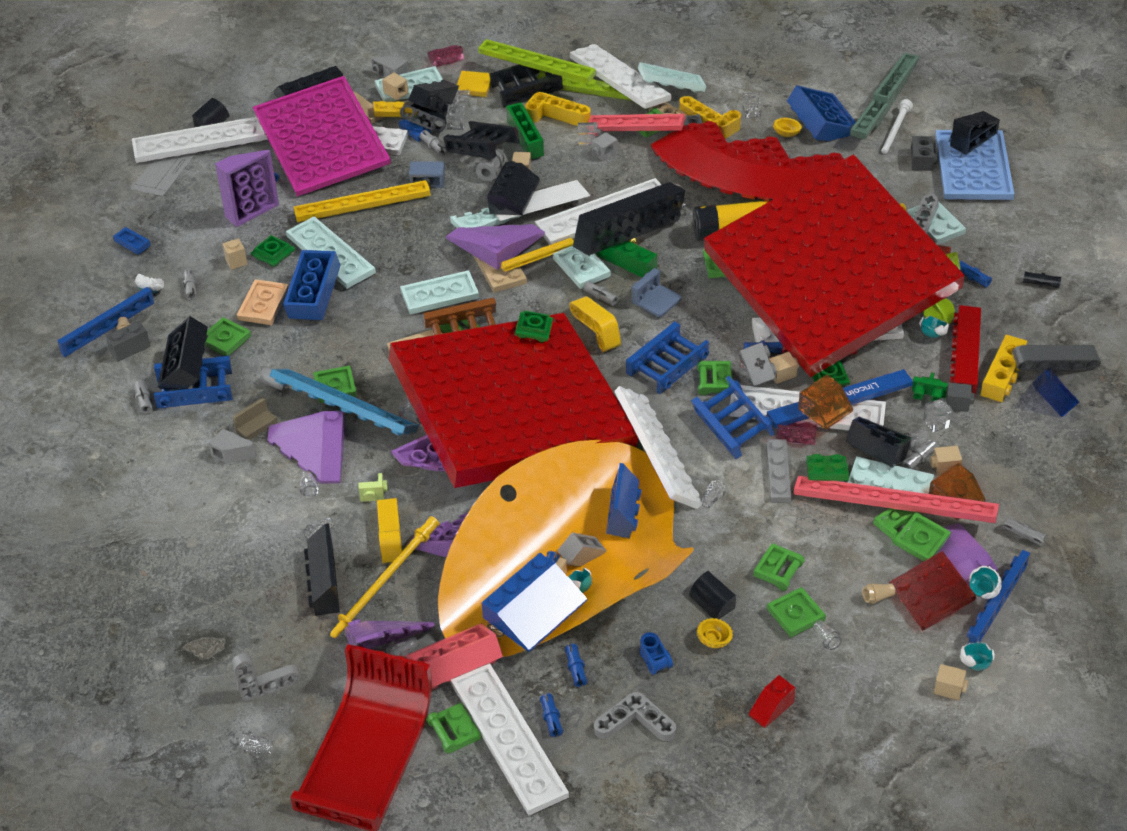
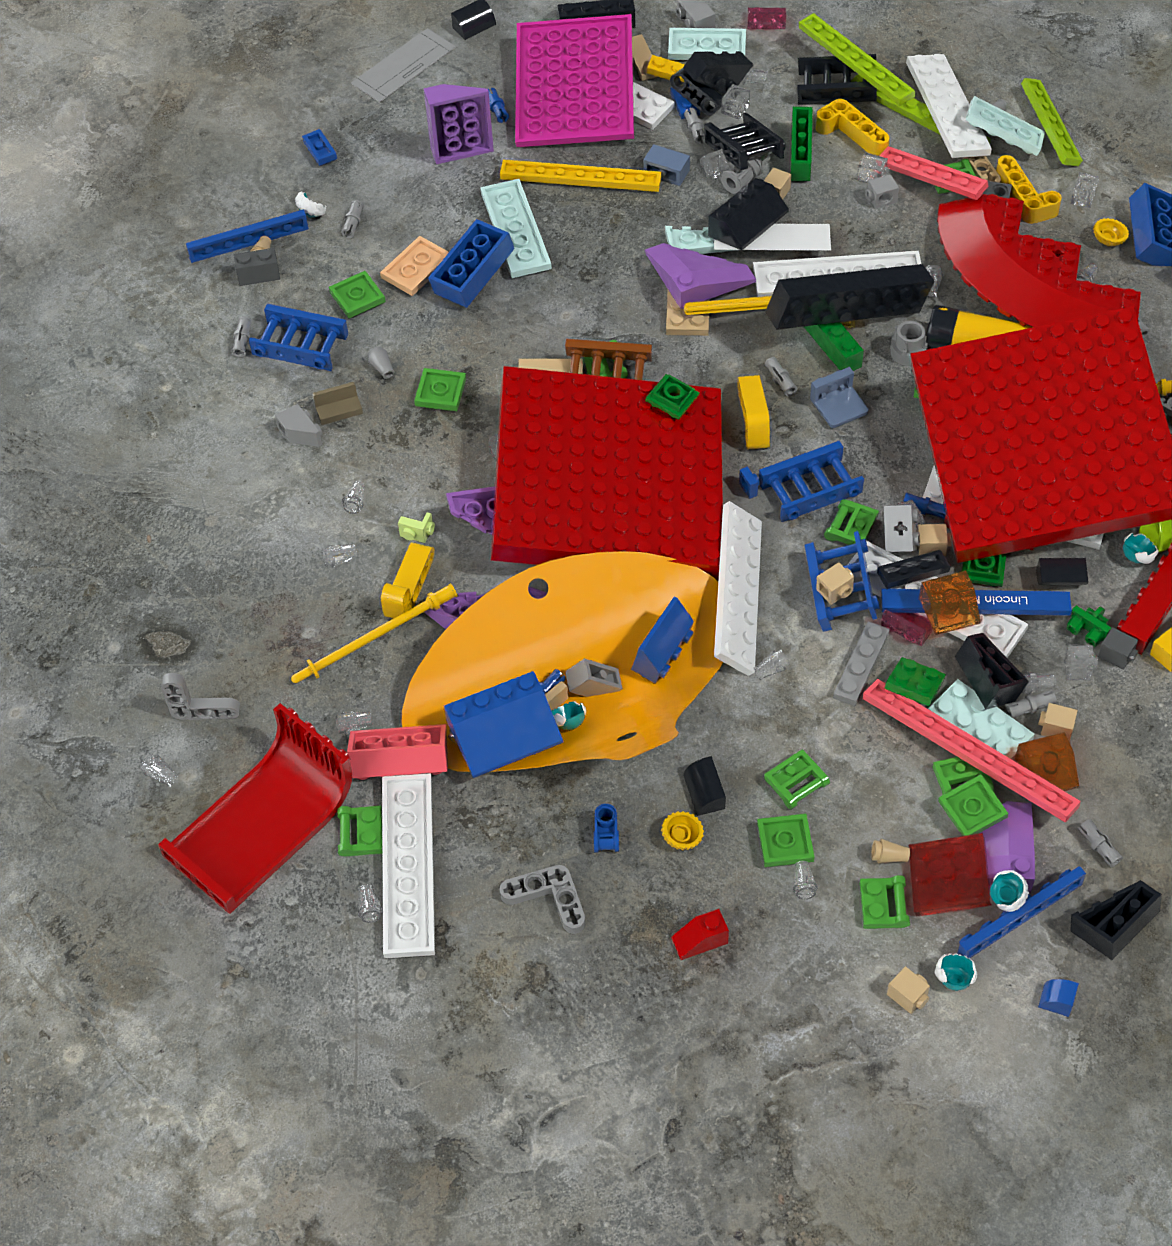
camera: 25 degrees right, 10 degrees up
(183, 355) = (297, 305): black slope -> none
(197, 139) = (444, 44): white plate -> none
(234, 254) = (414, 198): tan brick -> none
(272, 251) = (453, 213): green piece -> none
(314, 442) = (385, 452): medium lavender slope -> none
(321, 572) = (316, 606): black slope -> none
(347, 402) = (433, 414): dark azure plate -> none
(376, 633) = (329, 694): medium lavender slope -> none
(395, 86) = (684, 42): tan brick -> none
(439, 292) = (605, 315): light aqua plate -> none
(466, 163) = (714, 164): none -> clear brick
(476, 82) = (779, 63): yellow tile -> none
(494, 780) = (369, 906): none -> clear cone
(551, 715) = (464, 856): blue pin -> none
(576, 665) = (518, 810): blue pin -> none
(580, 266) = (781, 344): light aqua plate -> none
(620, 373) = (749, 482): none -> blue plate
(686, 241) = (907, 339): none -> light grey piece
(701, 67) = (1051, 122): none -> lime plate
(733, 417) = (835, 583): none -> tan brick
(782, 390) = (913, 569): none -> black plate
(888, 359) = (1062, 571): none -> black brick
(889, 633) = (875, 903): none -> bright green plate
(1059, 645) = (1058, 996): none -> blue brick
(1069, 577) = (1117, 920): none -> black wedge

